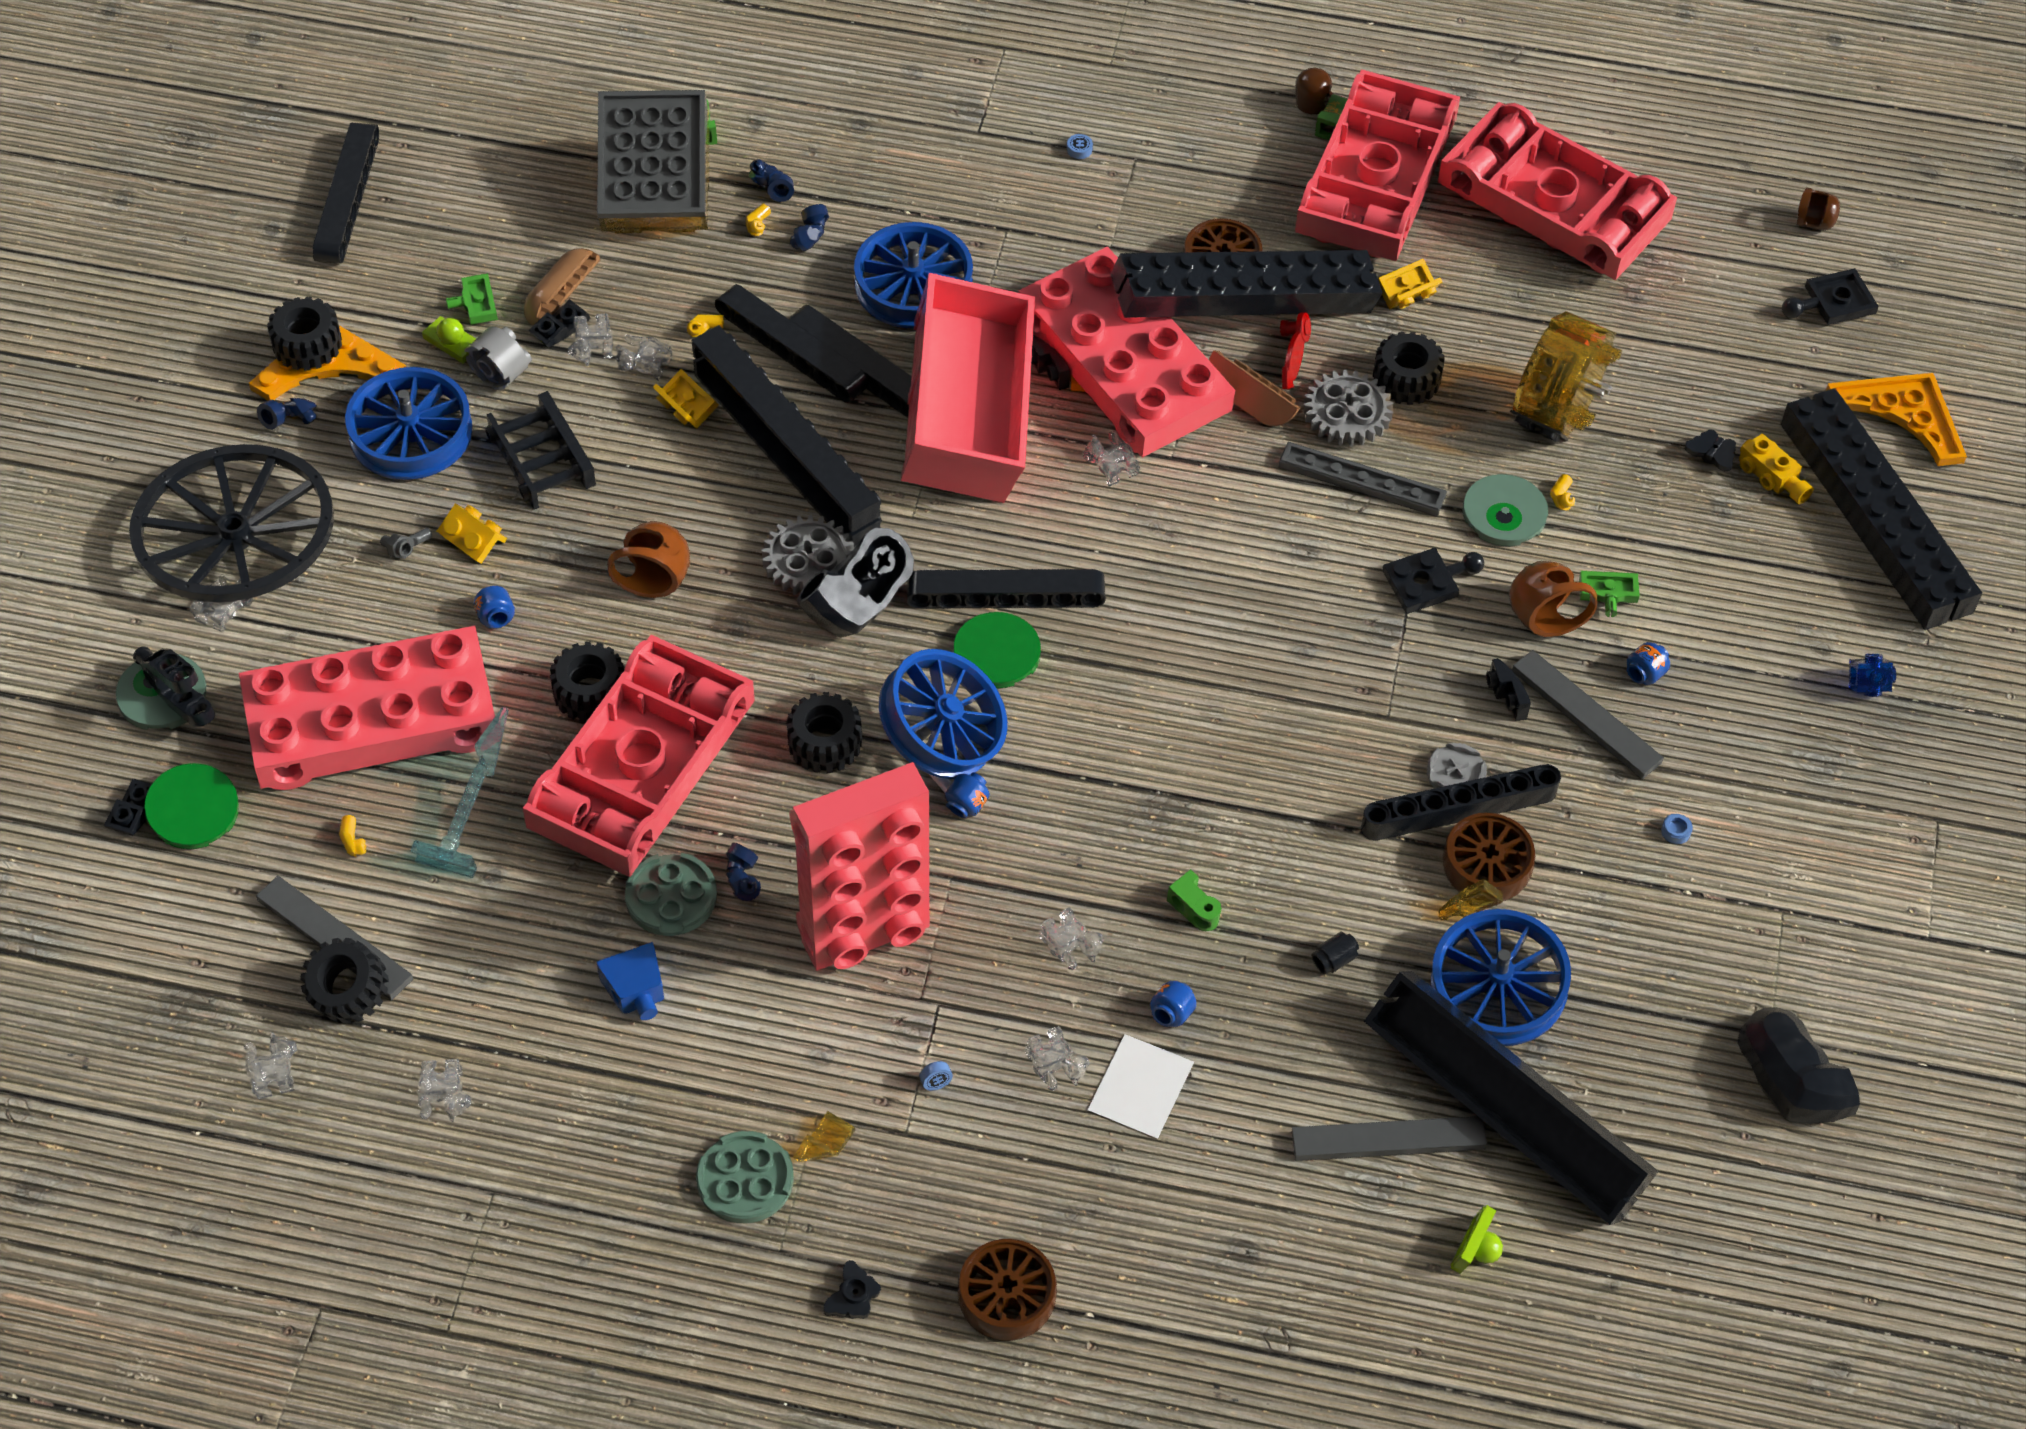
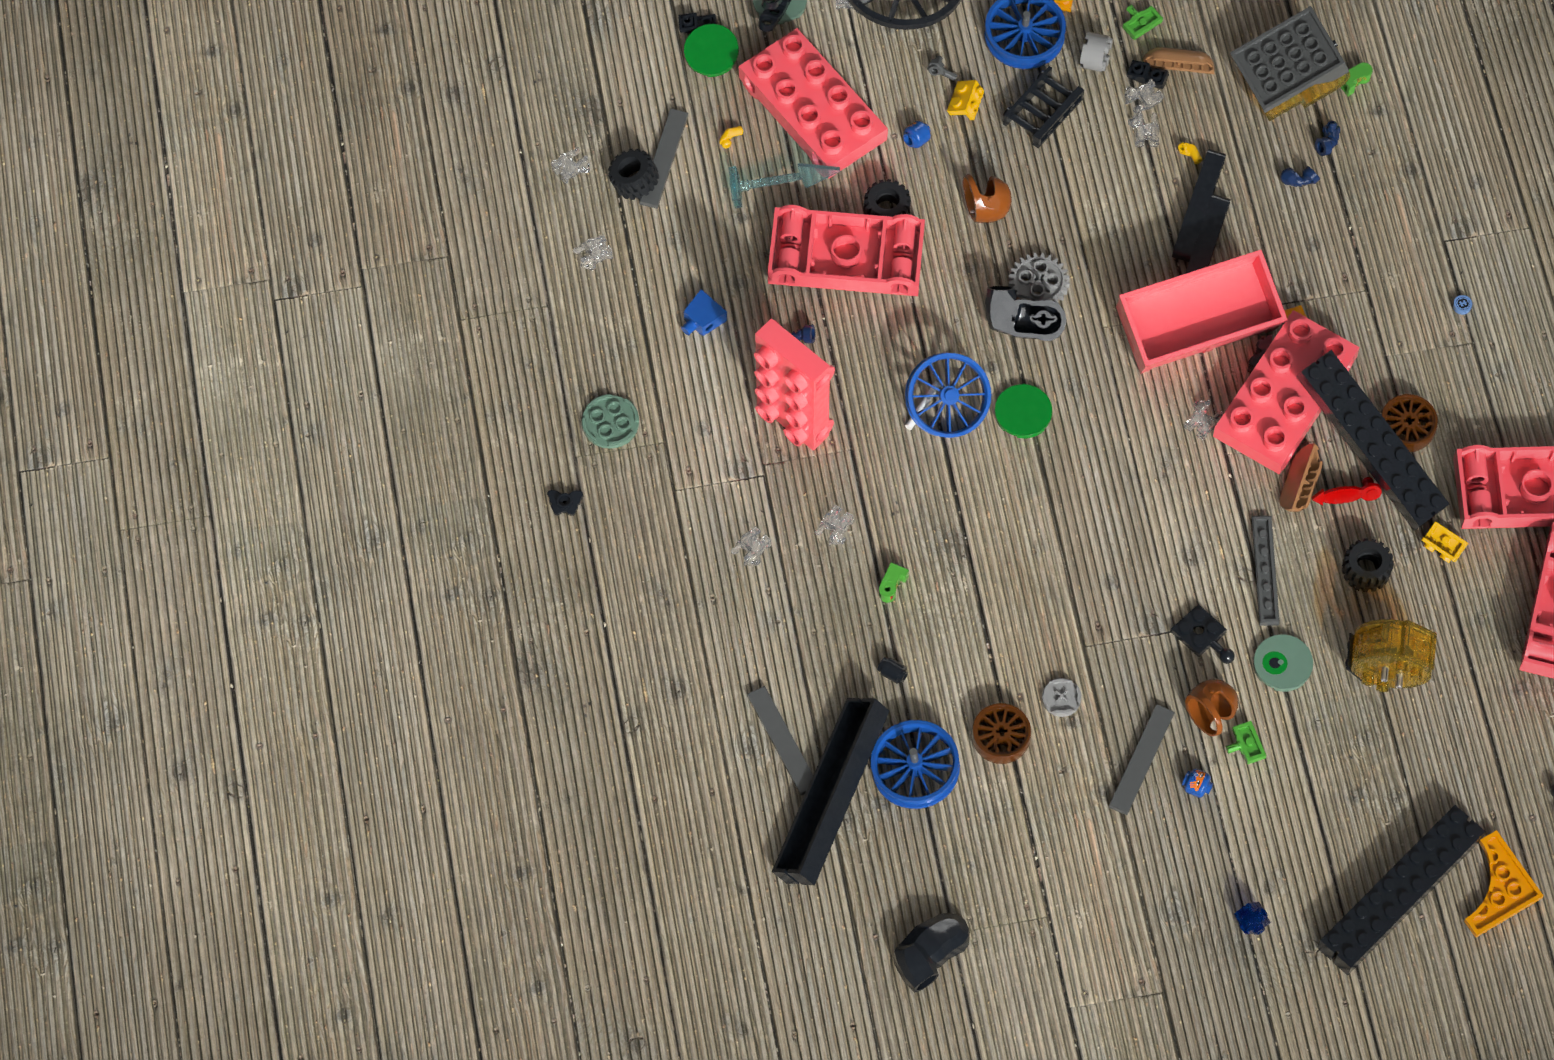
camera: 70 degrees right, 10 degrees up
(449, 337) = (1105, 20): lime tile -> none
(671, 894) = (770, 302): sand green tile -> none
(687, 398) = (1122, 166): yellow bracket -> none
(754, 220) = (1290, 144): yellow arm -> none
(784, 434) = (1116, 231): black piece -> none
(824, 713) = (911, 327): black tyre -> none
(827, 1139) = (650, 452): clear yellow slope -> none
(907, 274) = (1291, 249): blue wheel -> none
(936, 1075) = (713, 489): medium blue tile -> none
(967, 795) = (907, 433): blue head -> none
(1006, 588) = (1069, 398): black beam -> none
(1019, 1286) = (586, 593): reddish brown piece -> none
(1141, 1086) = (759, 599): white sticker -> none
(1173, 1004) = (816, 594): blue head -> none
(1348, 408) = (1332, 535): light grey gear -> none
(1447, 802) = (1033, 696): black beam -> none
(1472, 899) = (963, 732): clear yellow slope -> none
(1478, 1242) = (733, 807): lime tile -> none
(1508, 686) = (1137, 703): black slope -> none
(1559, 493) = (1313, 691): yellow arm -> none
(1676, 828) = (1079, 837): medium blue tile -> none
(1712, 449) = (1399, 767): black animal -> none
(1774, 468) = (1408, 812): yellow brick -> none

